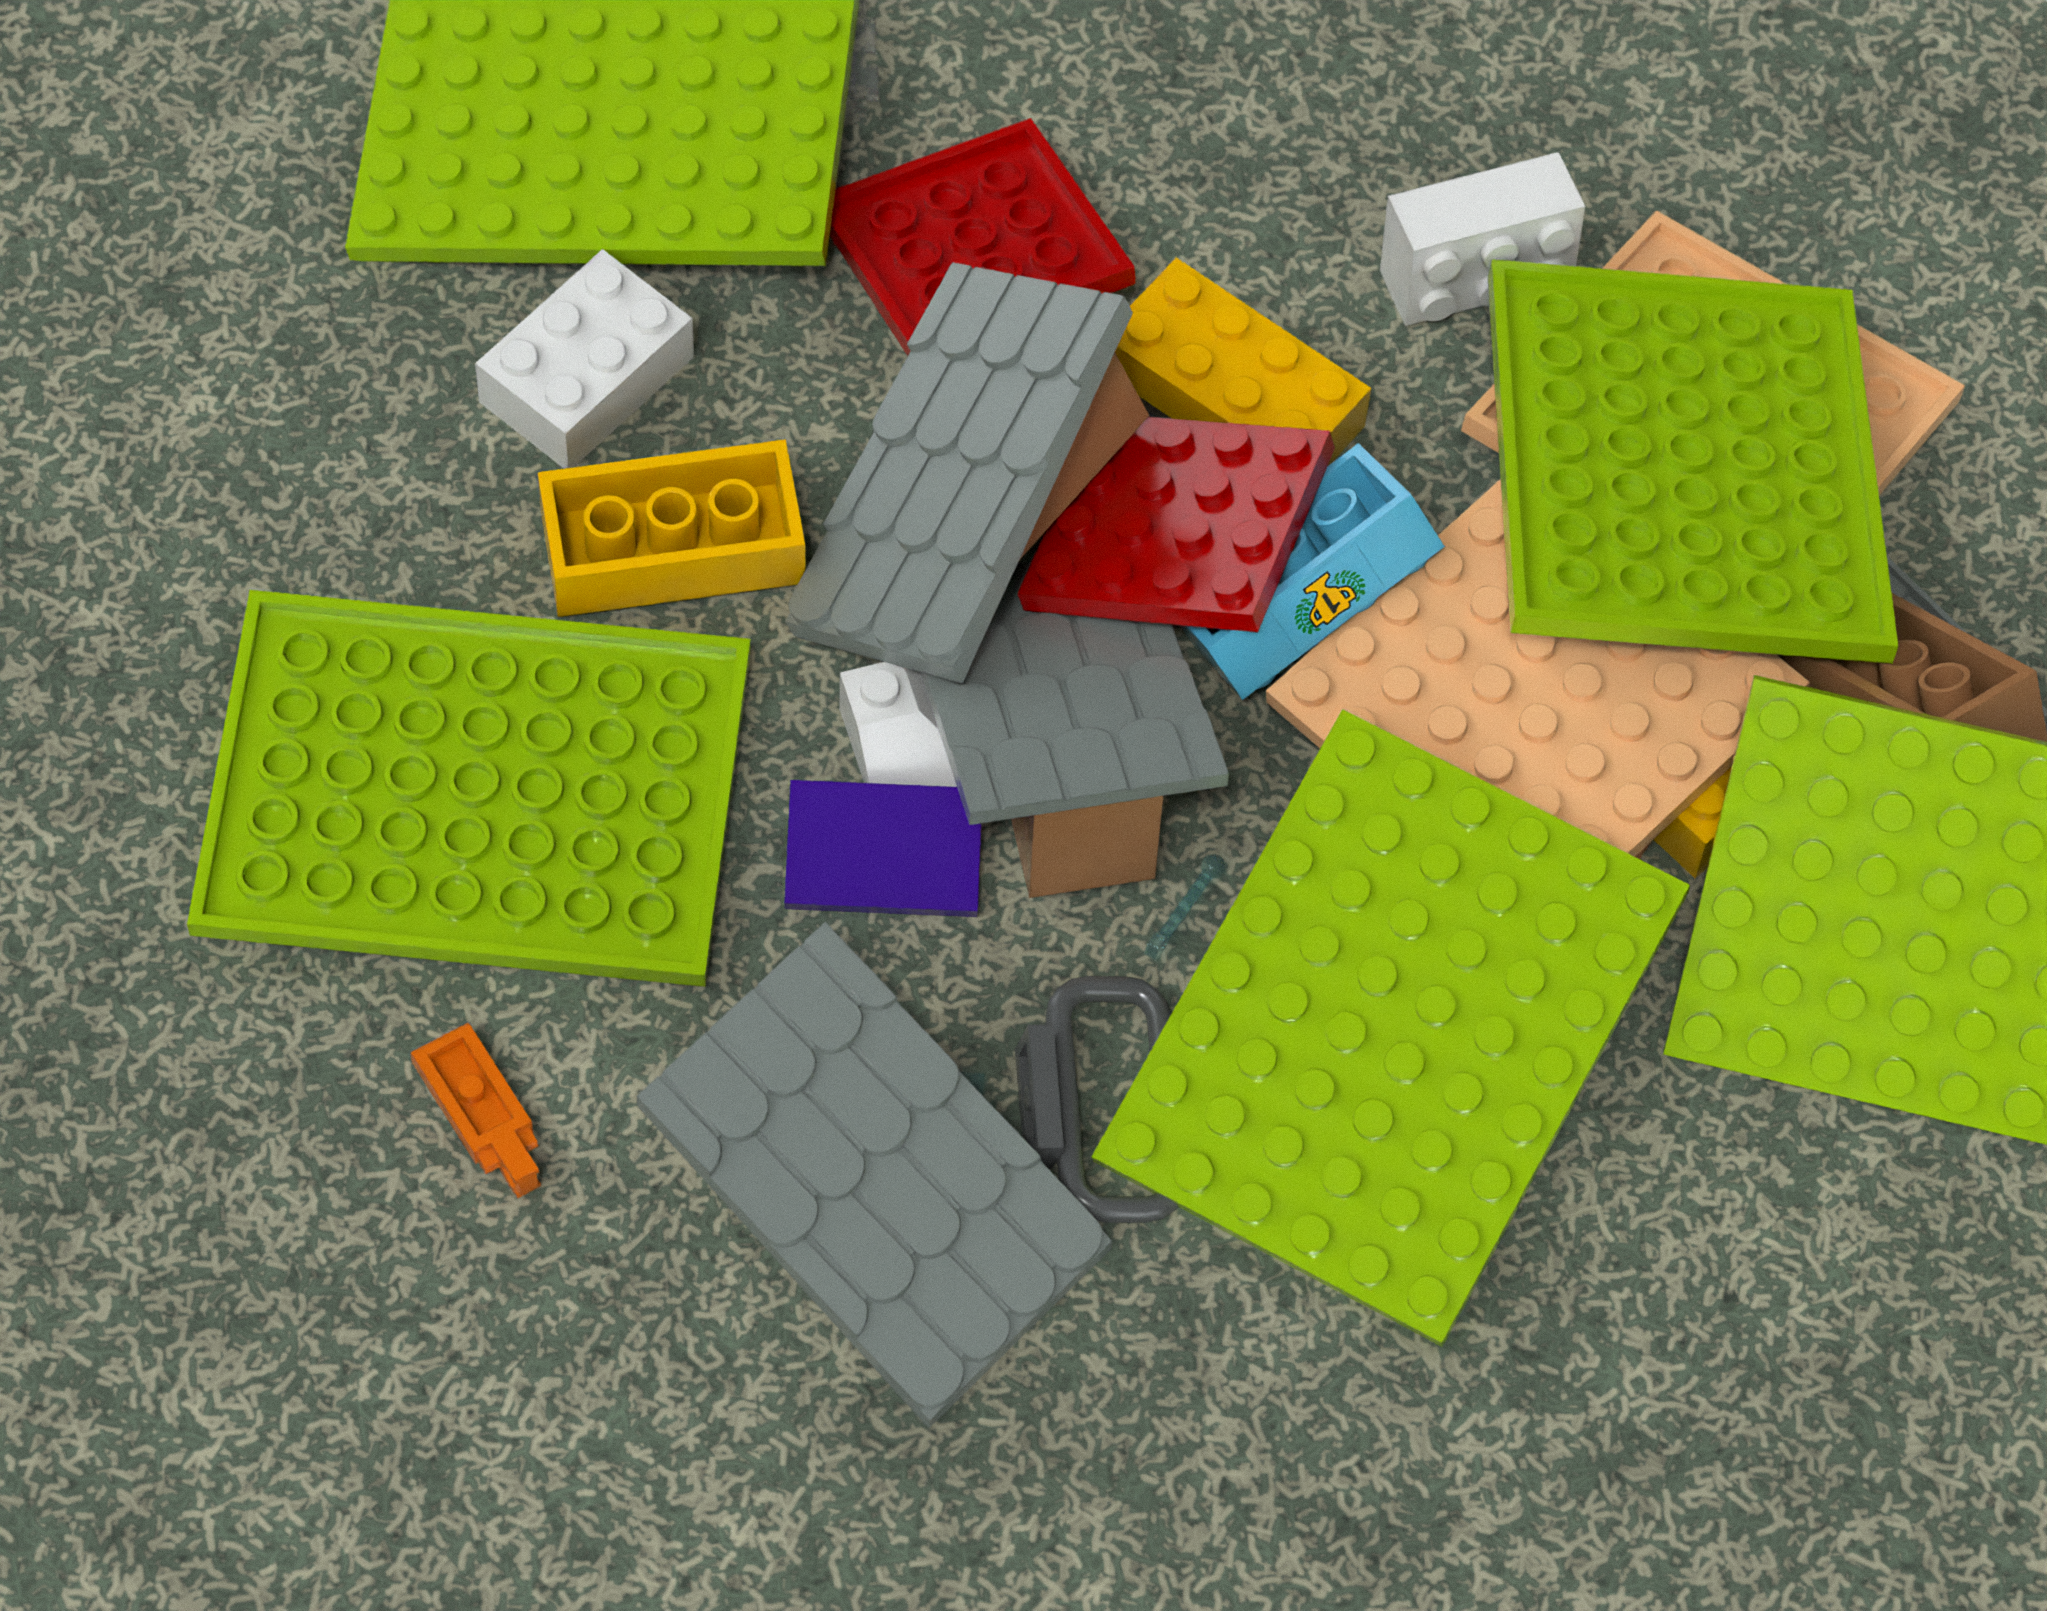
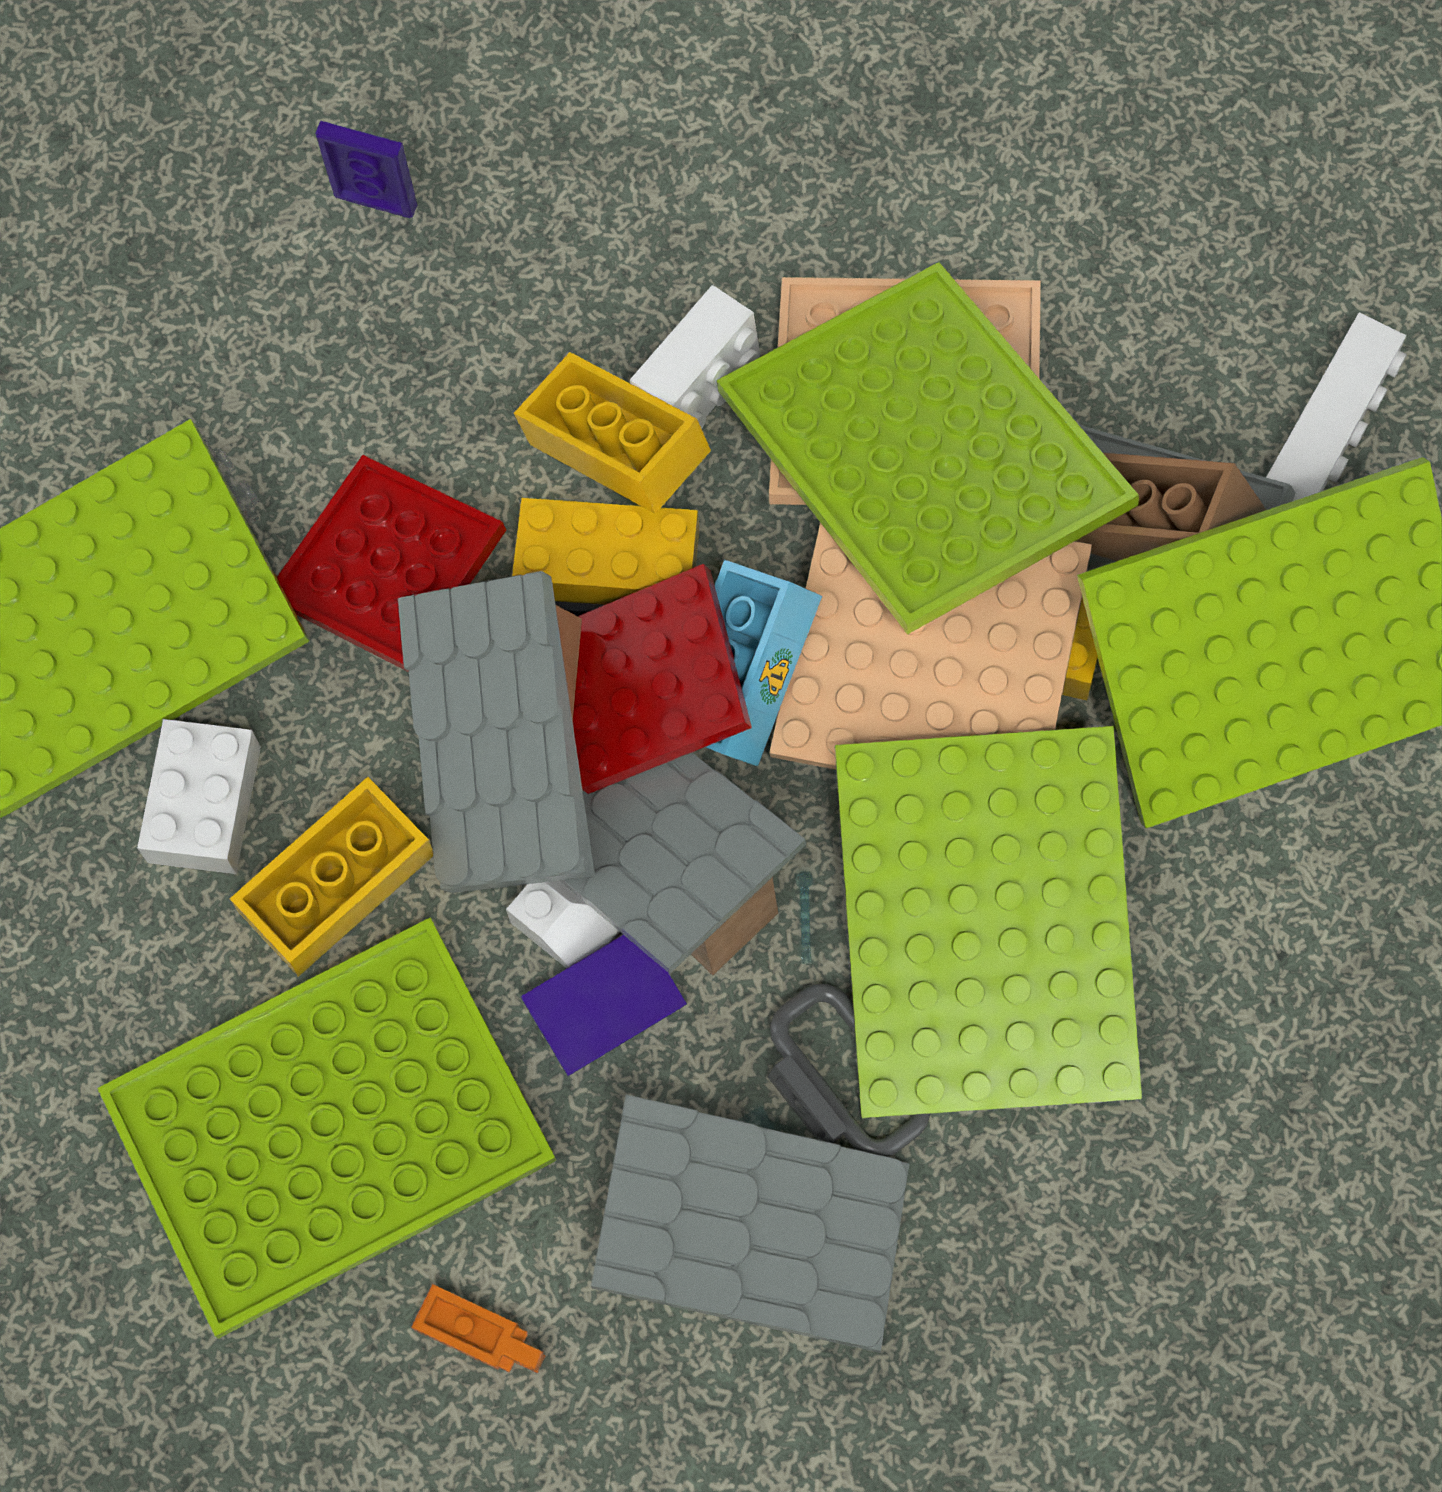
camera: 25 degrees left, 10 degrees up
(1332, 248) = (613, 432): none -> yellow brick

